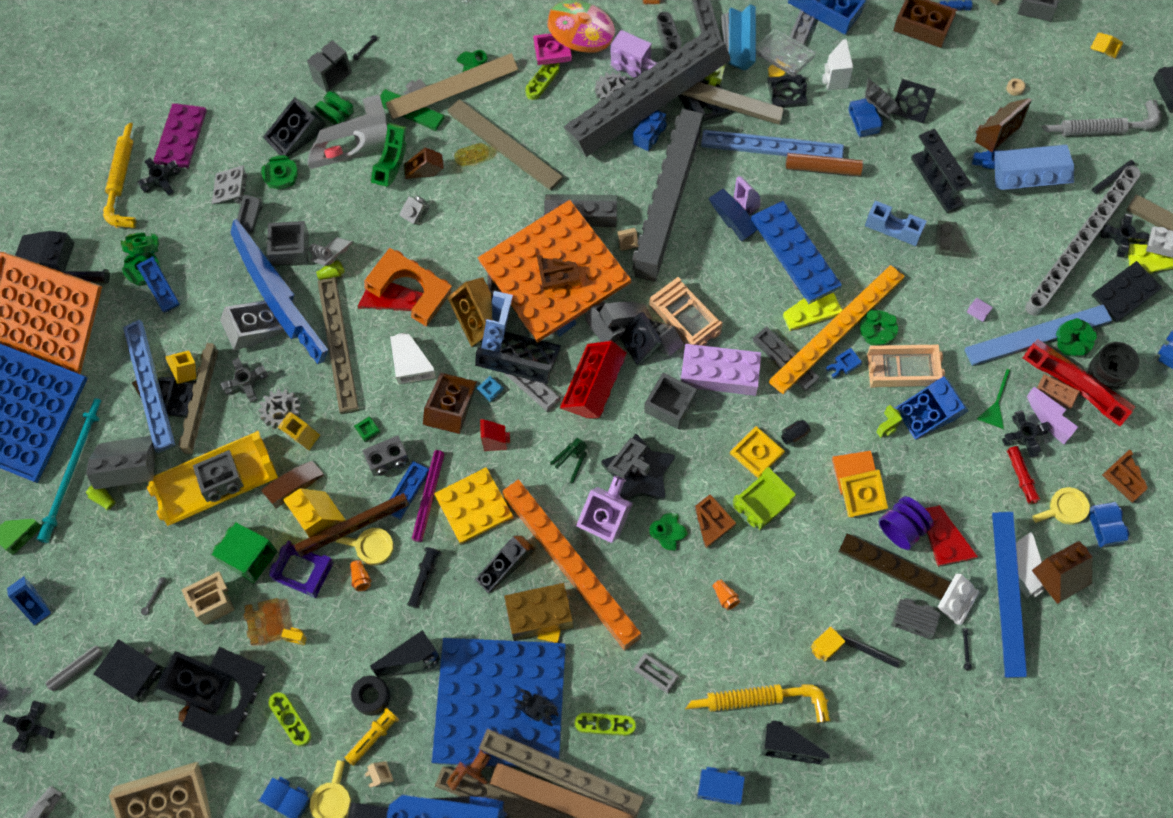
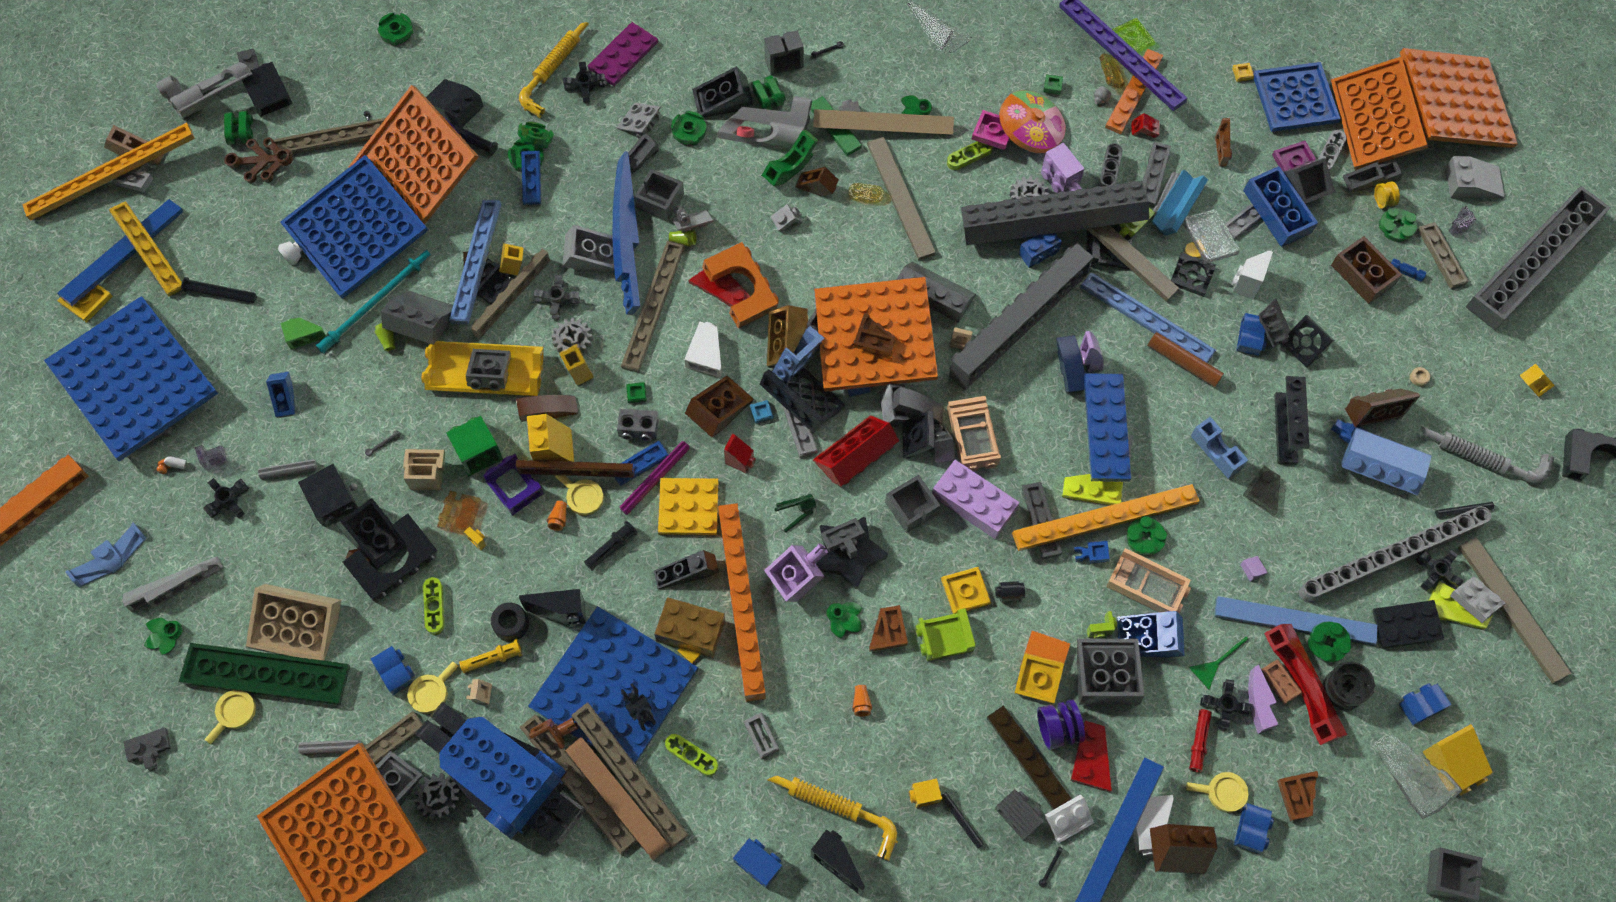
camera: 25 degrees right, 0 degrees up
(918, 457) = (1109, 672): none -> dark grey slope

